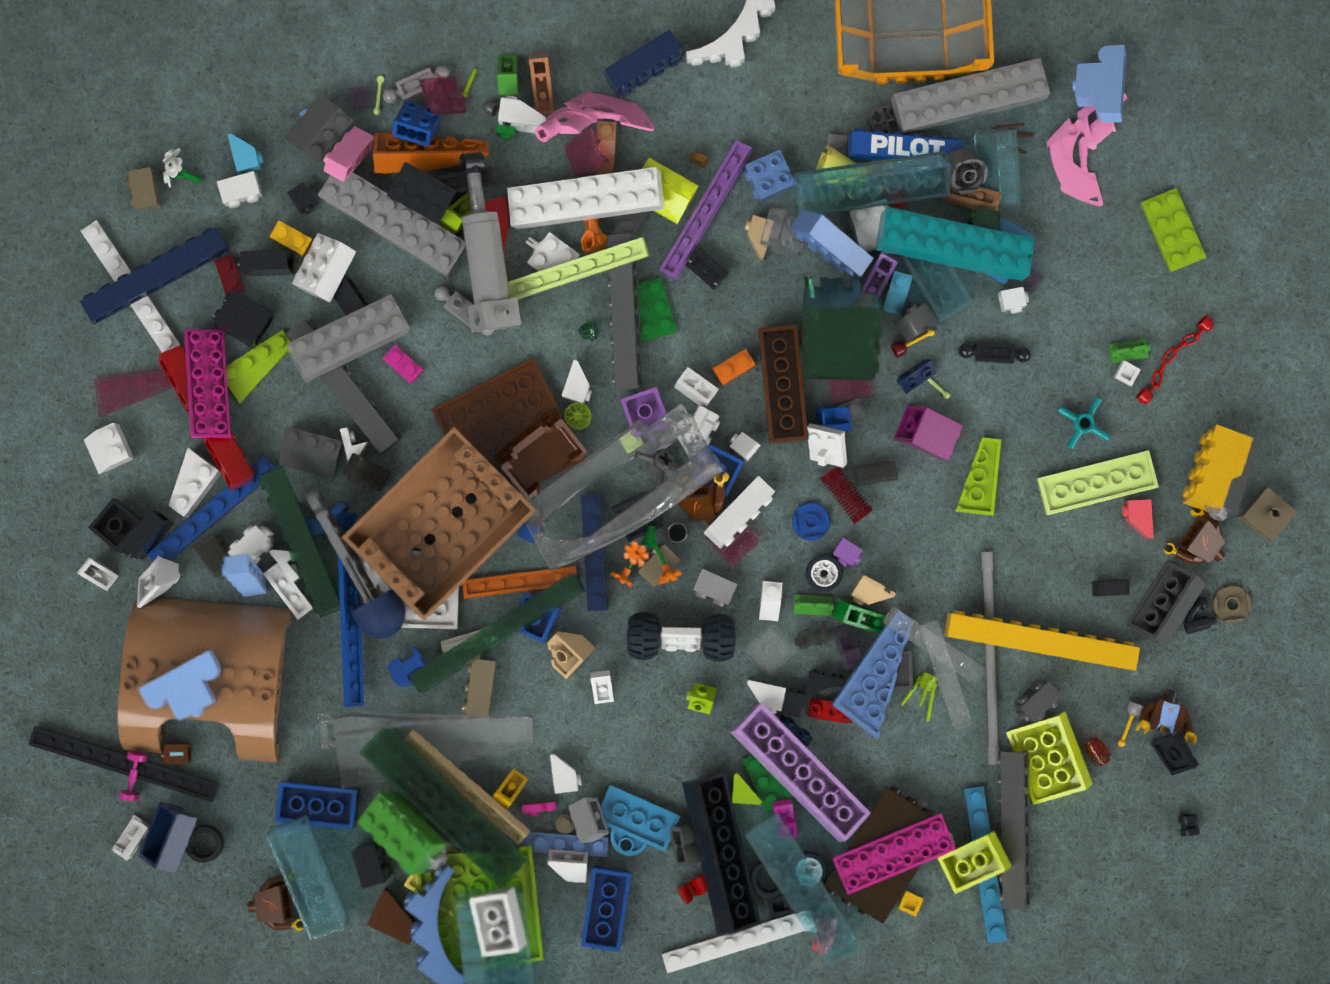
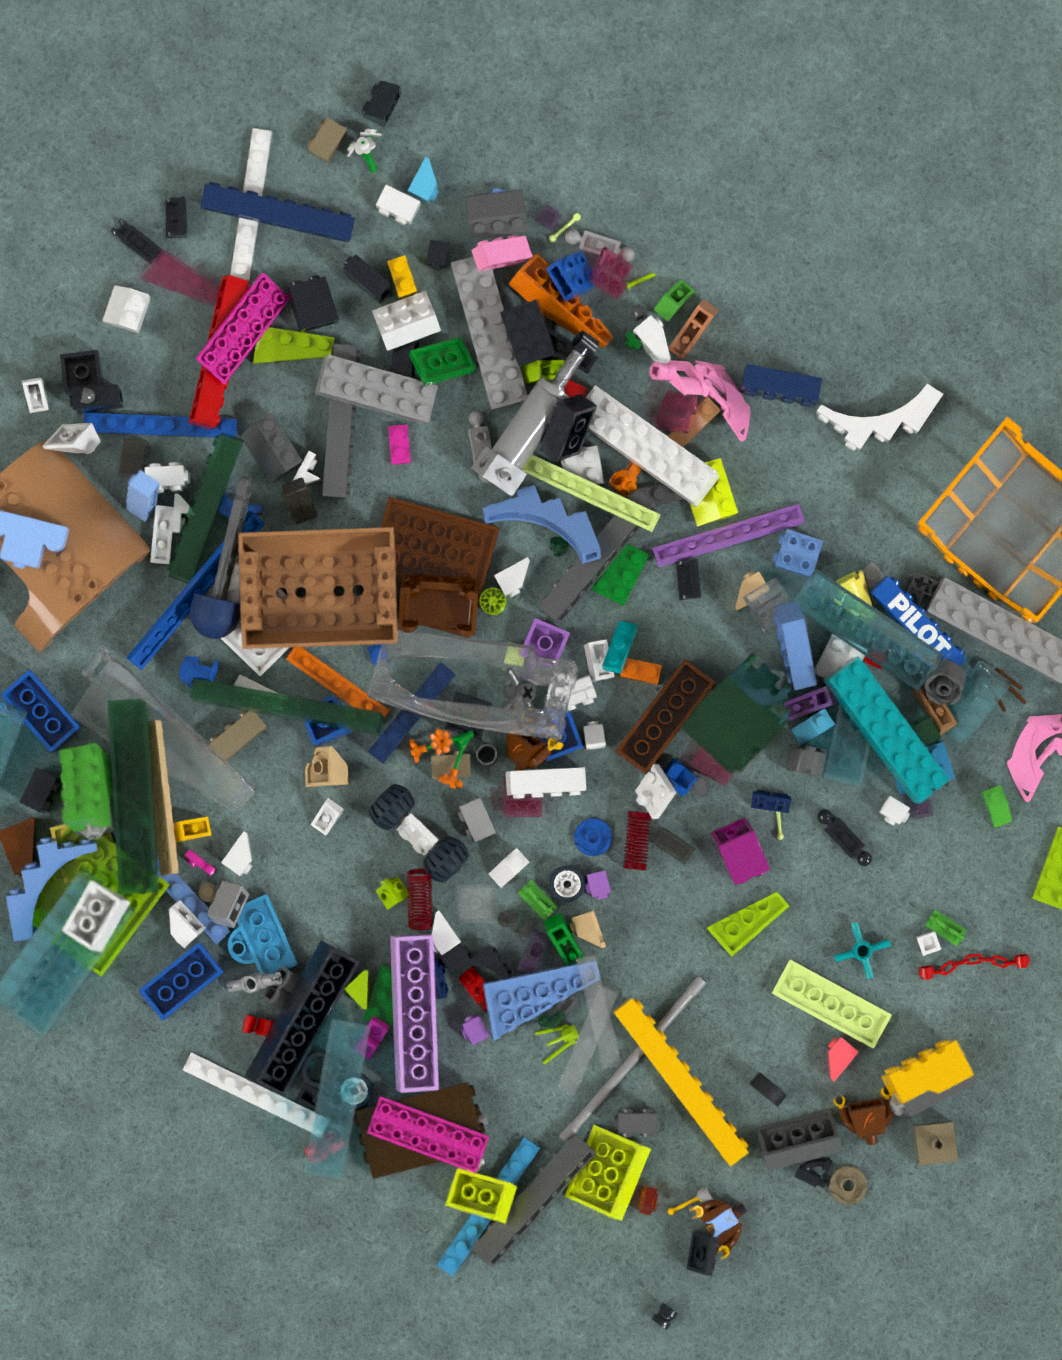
camera: 40 degrees right, 0 degrees up
(71, 391) = (137, 242): none -> black hinge
(83, 347) = (176, 218): none -> black hinge
(135, 538) = (87, 396): none -> dark grey hinge
(159, 124) = (382, 102): none -> black slope
(193, 483) = (165, 392): white wedge -> none
(229, 274) = (332, 261): dark red plate -> none
(378, 273) = (442, 361): none -> green plate
(516, 235) = (568, 427): none -> black brick
(563, 312) = (551, 514): none -> medium blue arch
(665, 853) = (261, 979): none -> light grey pin
(698, 159) = (757, 493): pearl gold tile -> none
(702, 363) = (620, 647): none -> teal plate
(713, 671) = (427, 920): none -> dark red piece
(855, 743) = (474, 1029): none -> medium lavender brick
(900, 348) = (777, 770): hinge -> none
(905, 686) = (551, 1021): none -> clear green arm
(910, 903) = (407, 1183): yellow plate -> none
(1083, 227) = (997, 806): none -> bright green slope

